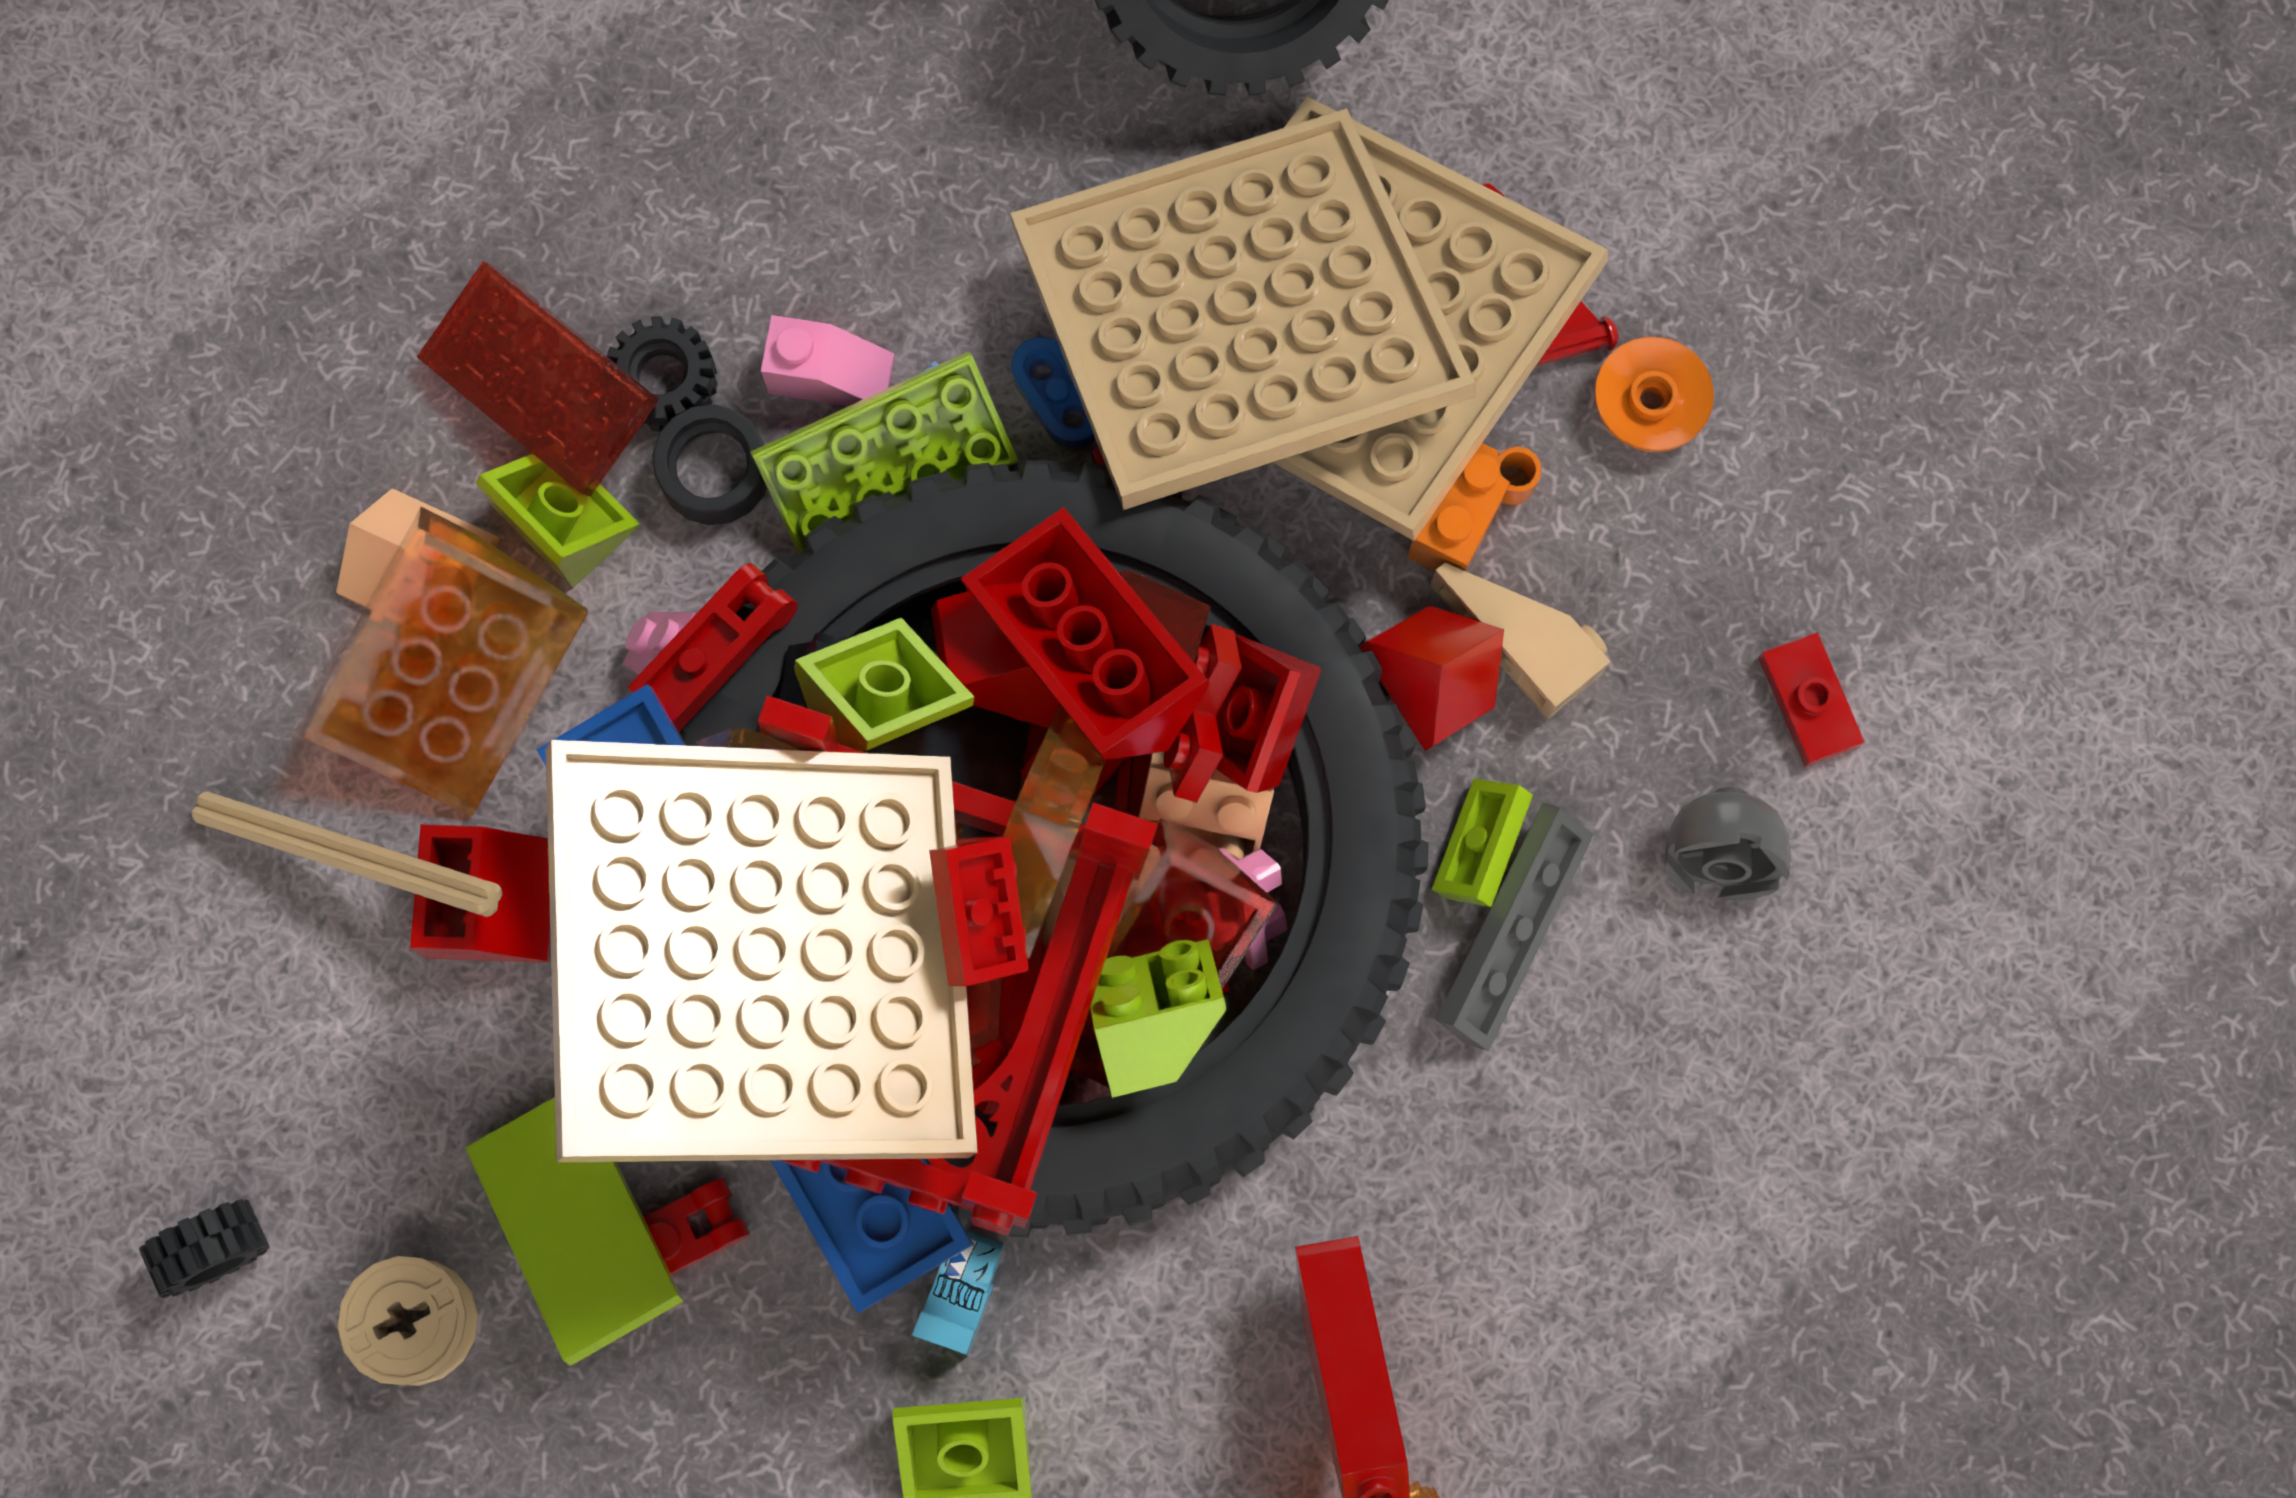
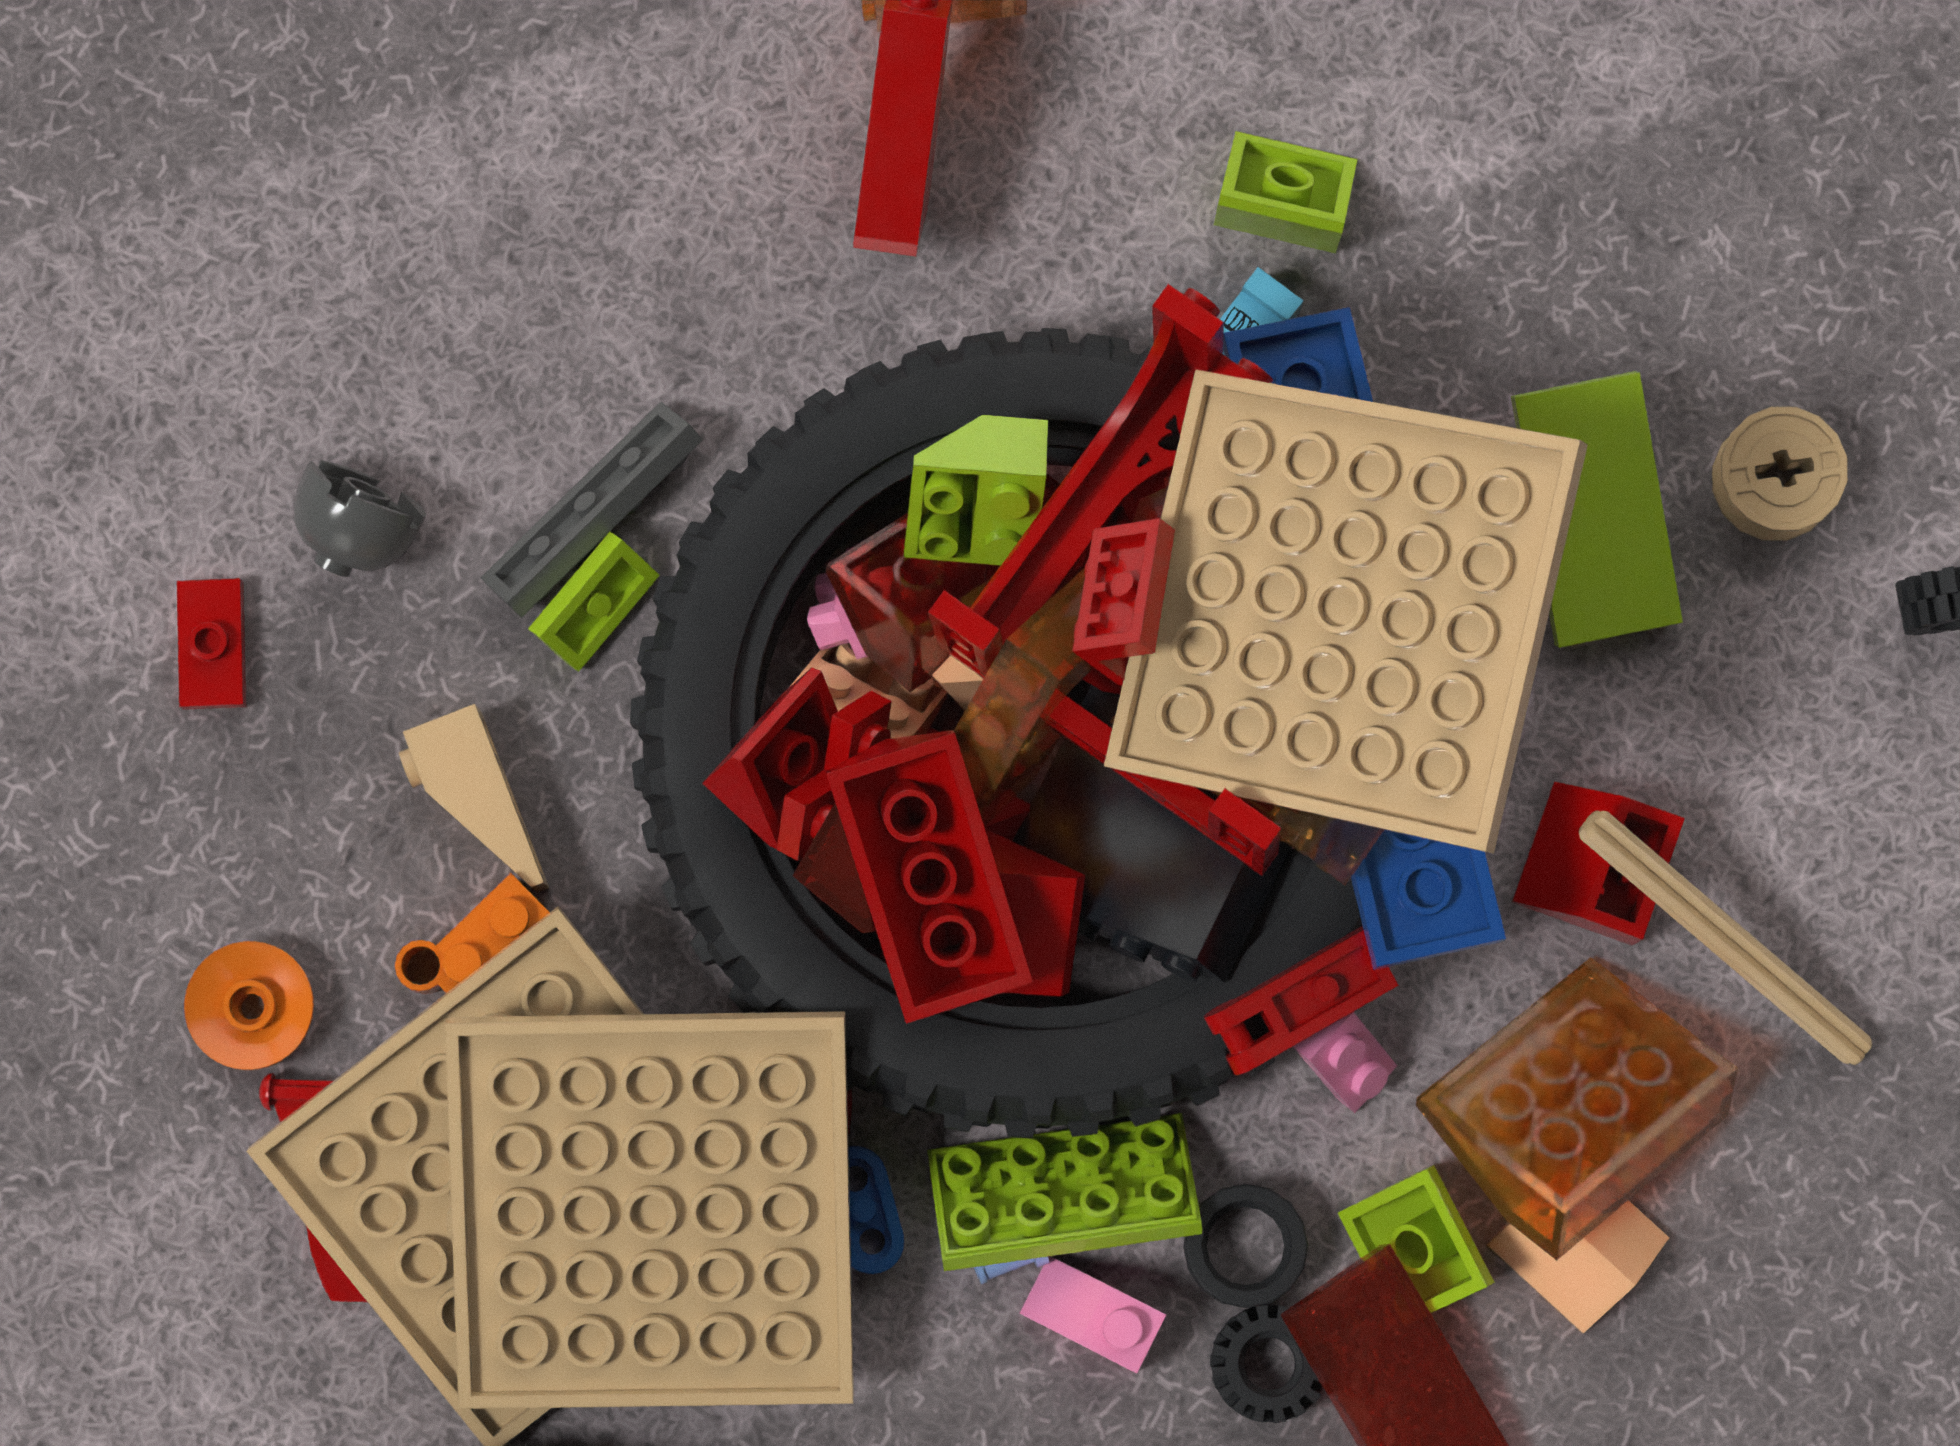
camera: 160 degrees left, 5 degrees up
(880, 685) = (1149, 889): lime slope -> none
(1439, 670) = (580, 777): red slope -> none

